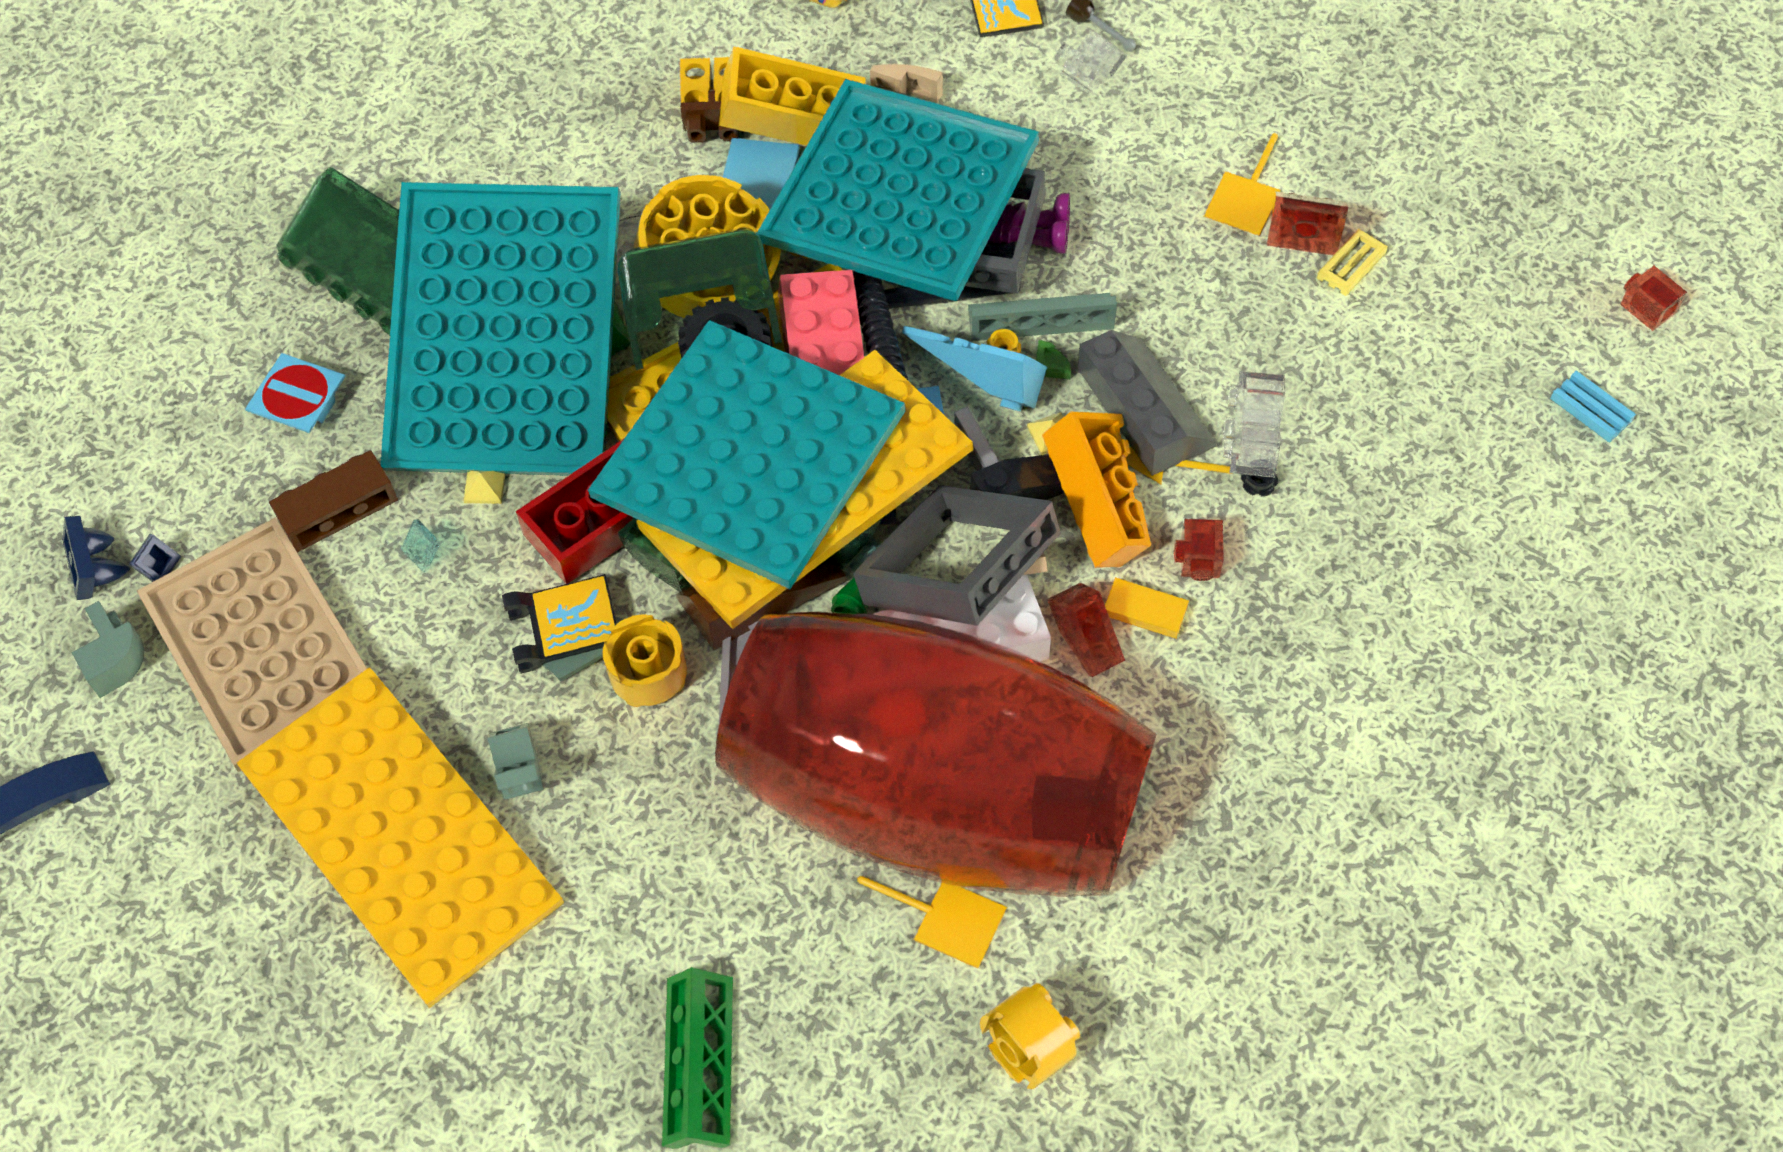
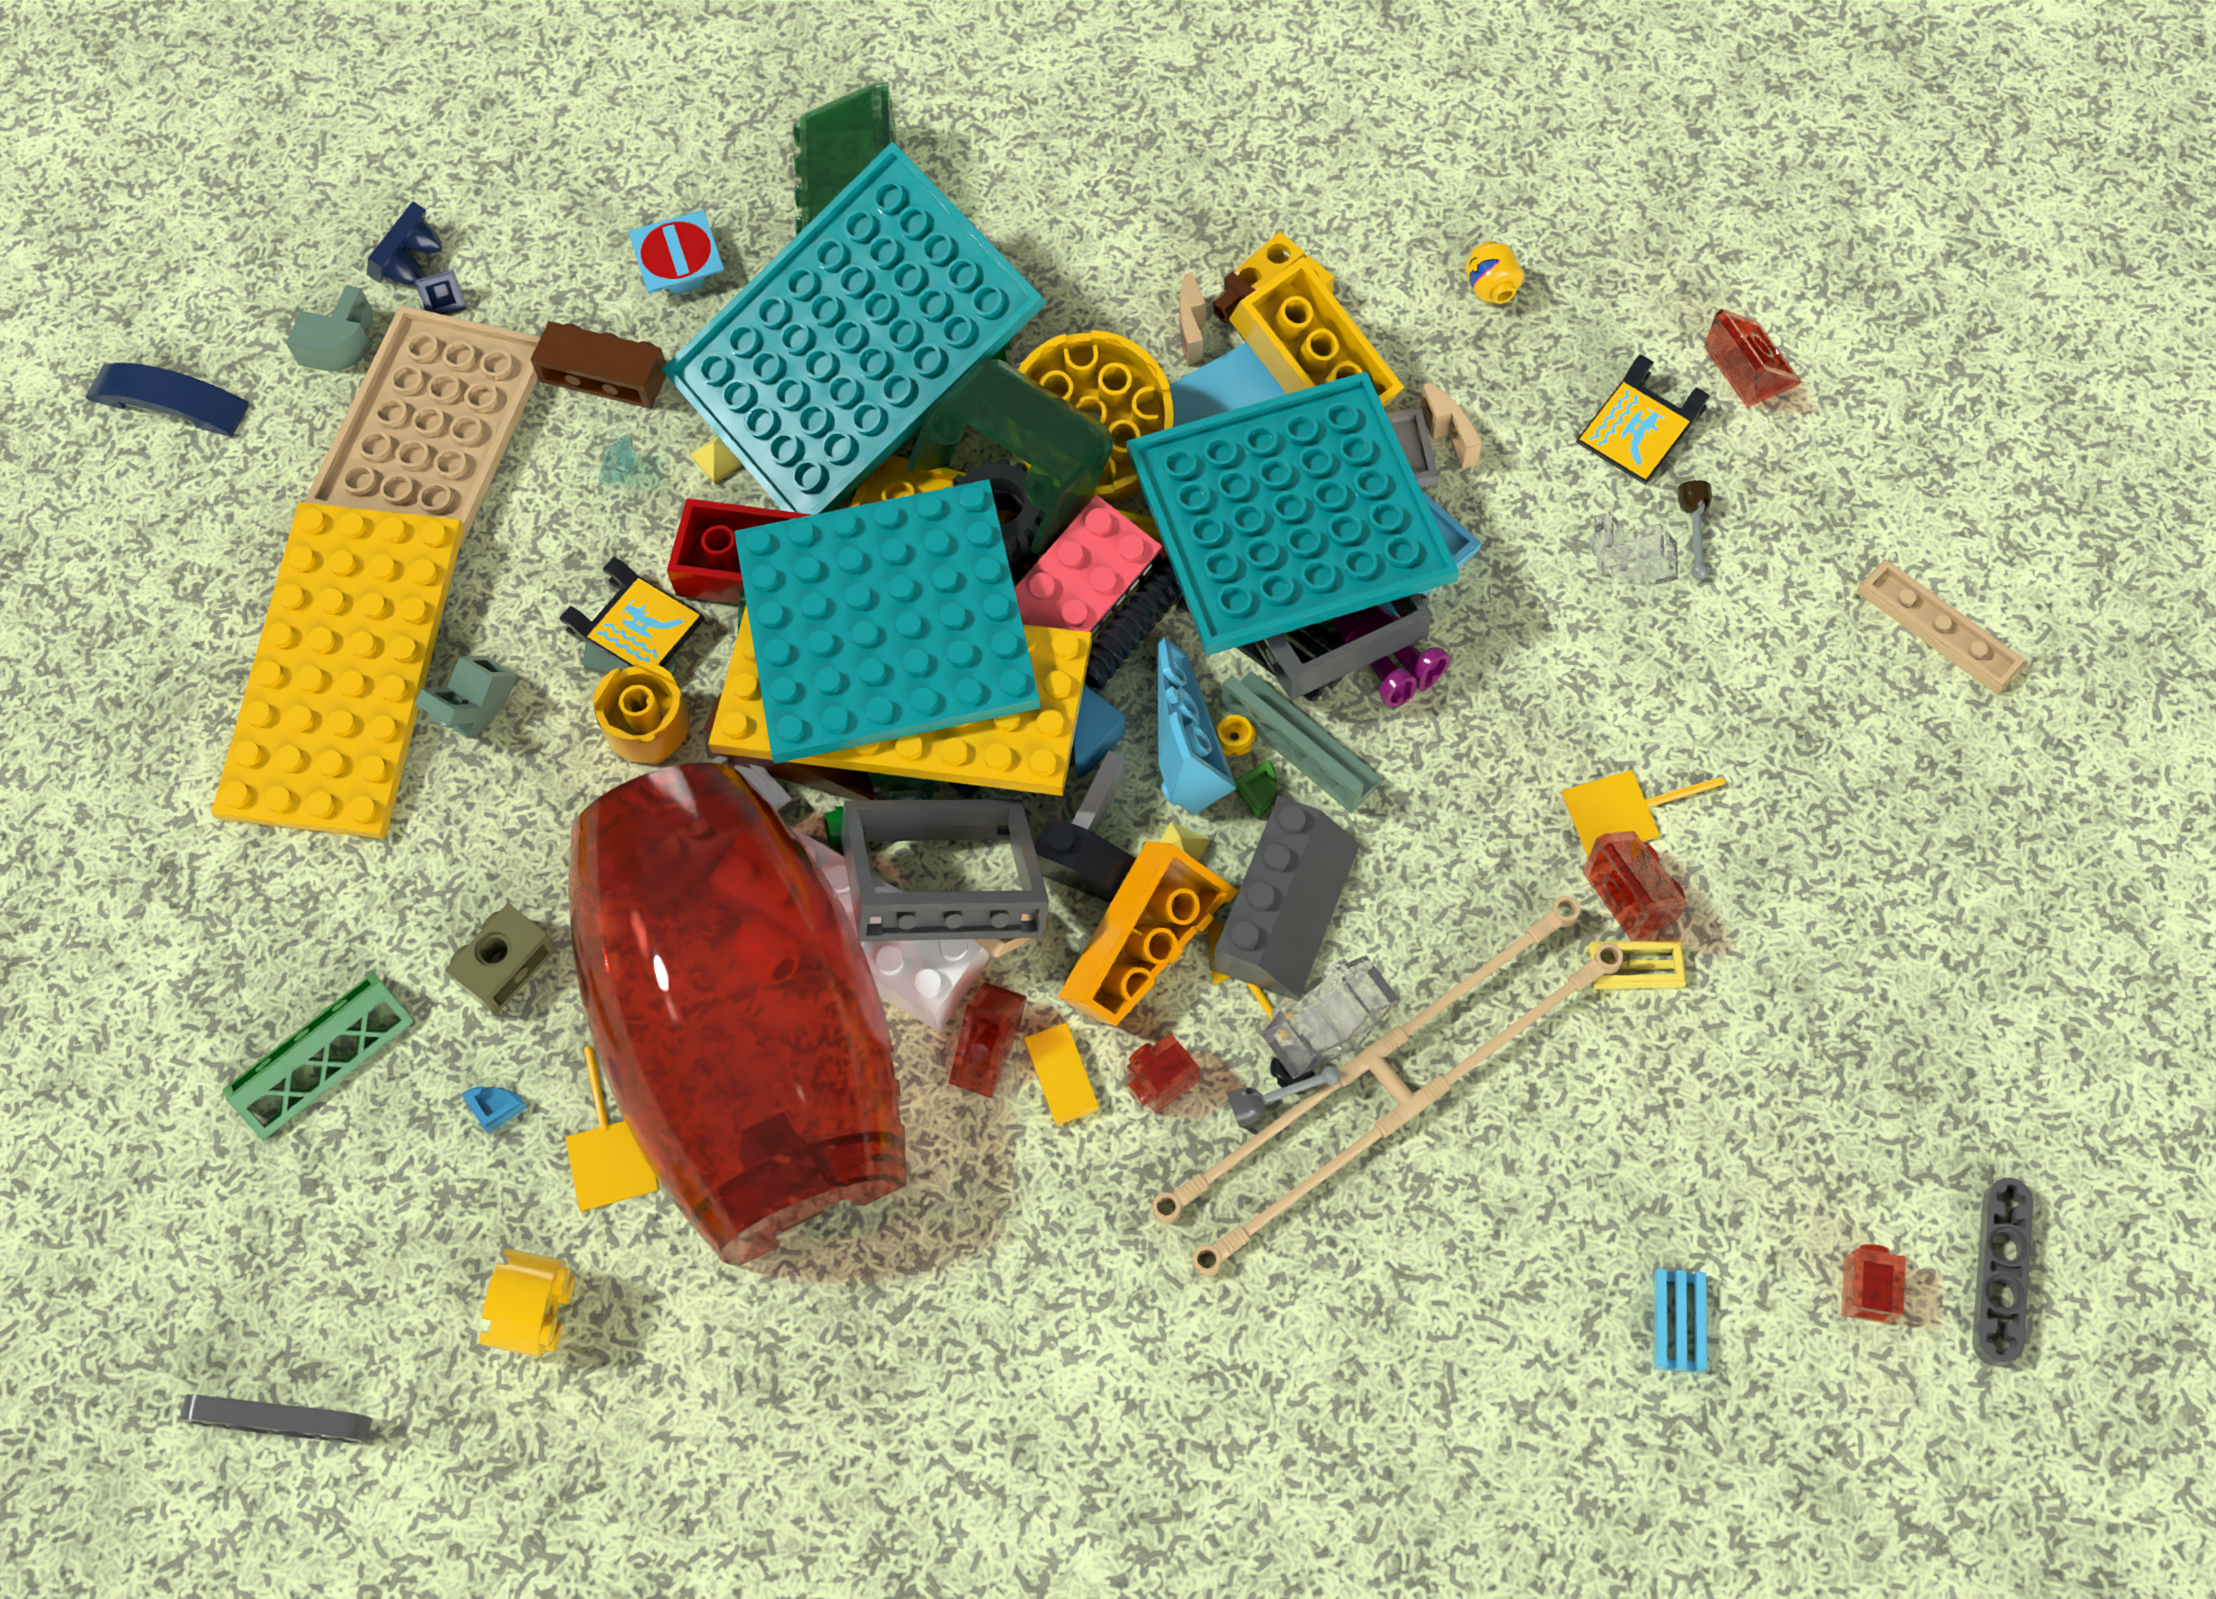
camera: 50 degrees right, 5 degrees up
(677, 150) = (1191, 318): none -> tan slope
(742, 859) = (498, 982): none -> olive brick
(847, 969) = (493, 1105): none -> dark azure tile
(1264, 519) = (1250, 1105): none -> hinge
(1339, 436) = (1408, 1103): none -> tan bar
(1696, 233) = (2009, 1272): none -> dark grey beam

